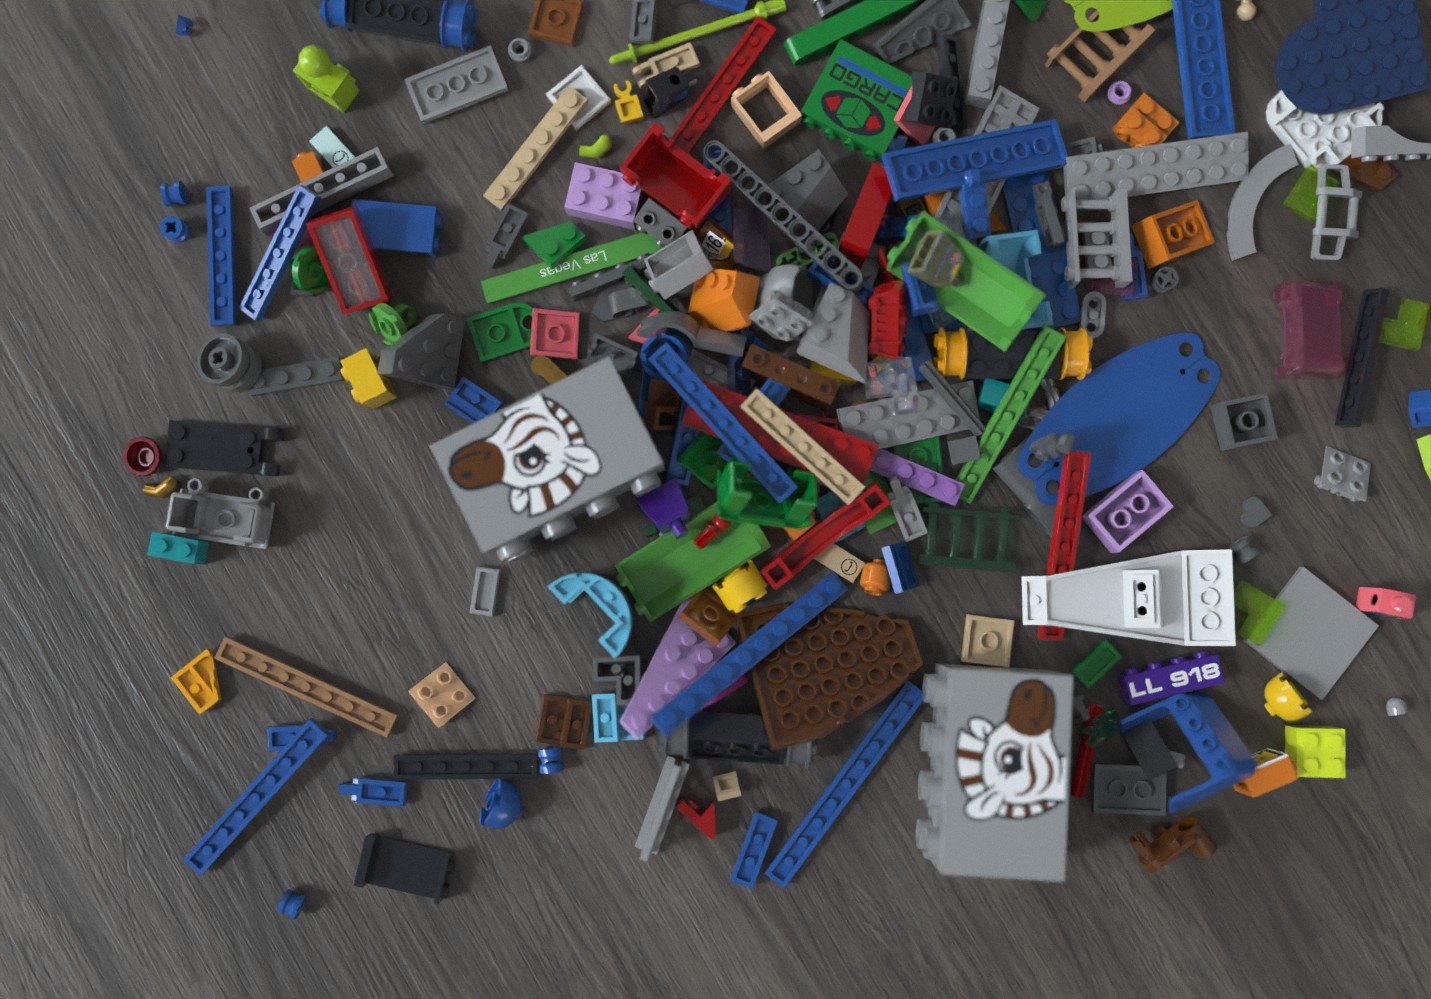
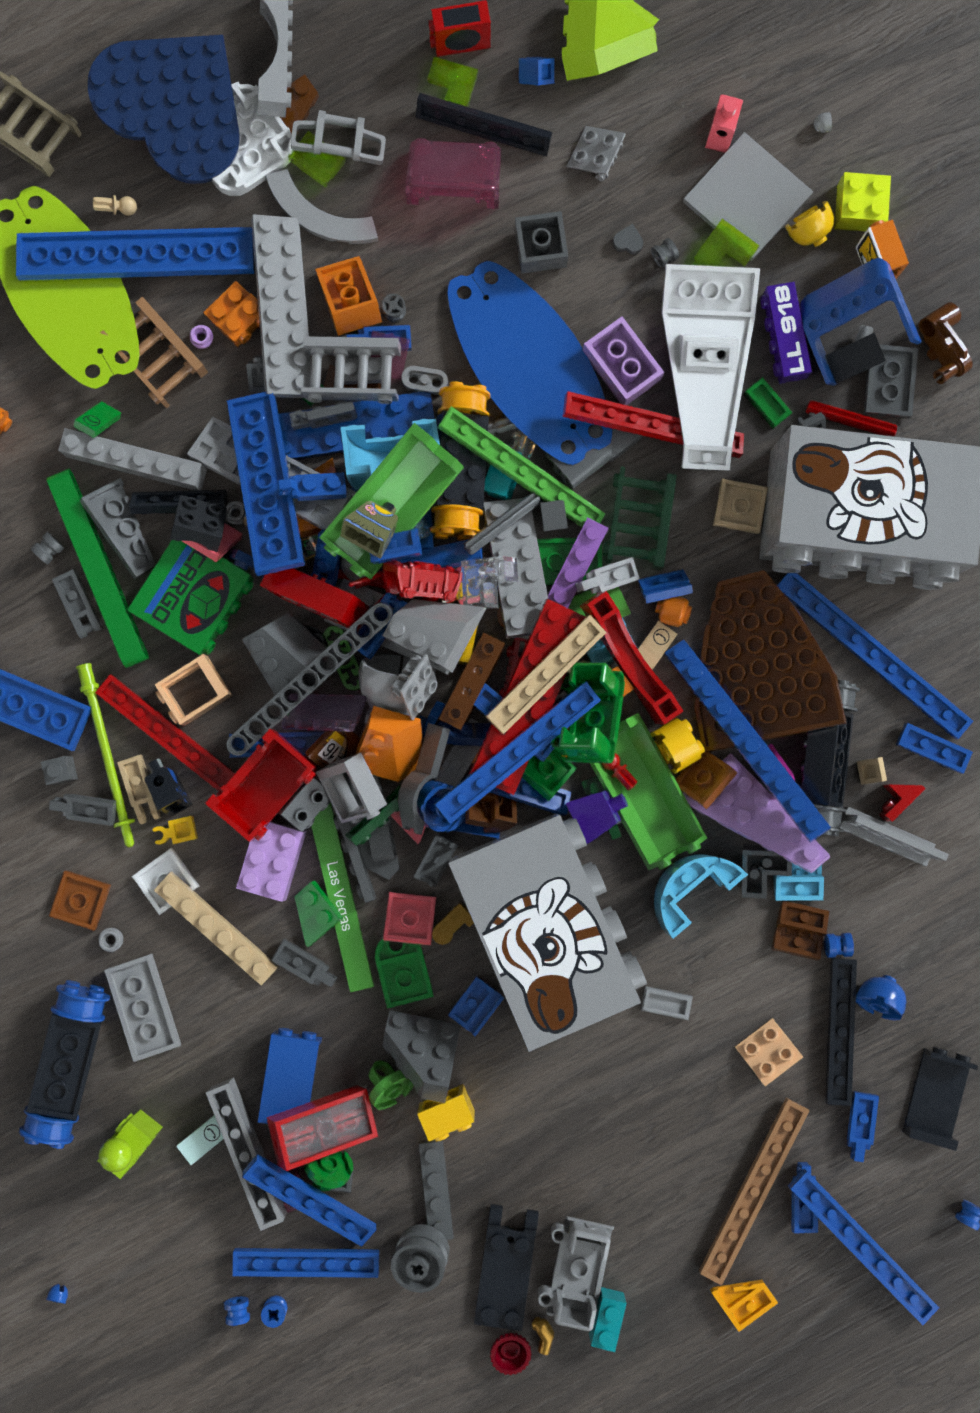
camera: 90 degrees left, 0 degrees up
(308, 165) = (219, 1166): orange brick -> none
(598, 150) = (221, 863): lime arm -> none
(1052, 446) = (559, 428): dark grey hinge -> none
(1104, 728) = (831, 399): clear green plate -> none

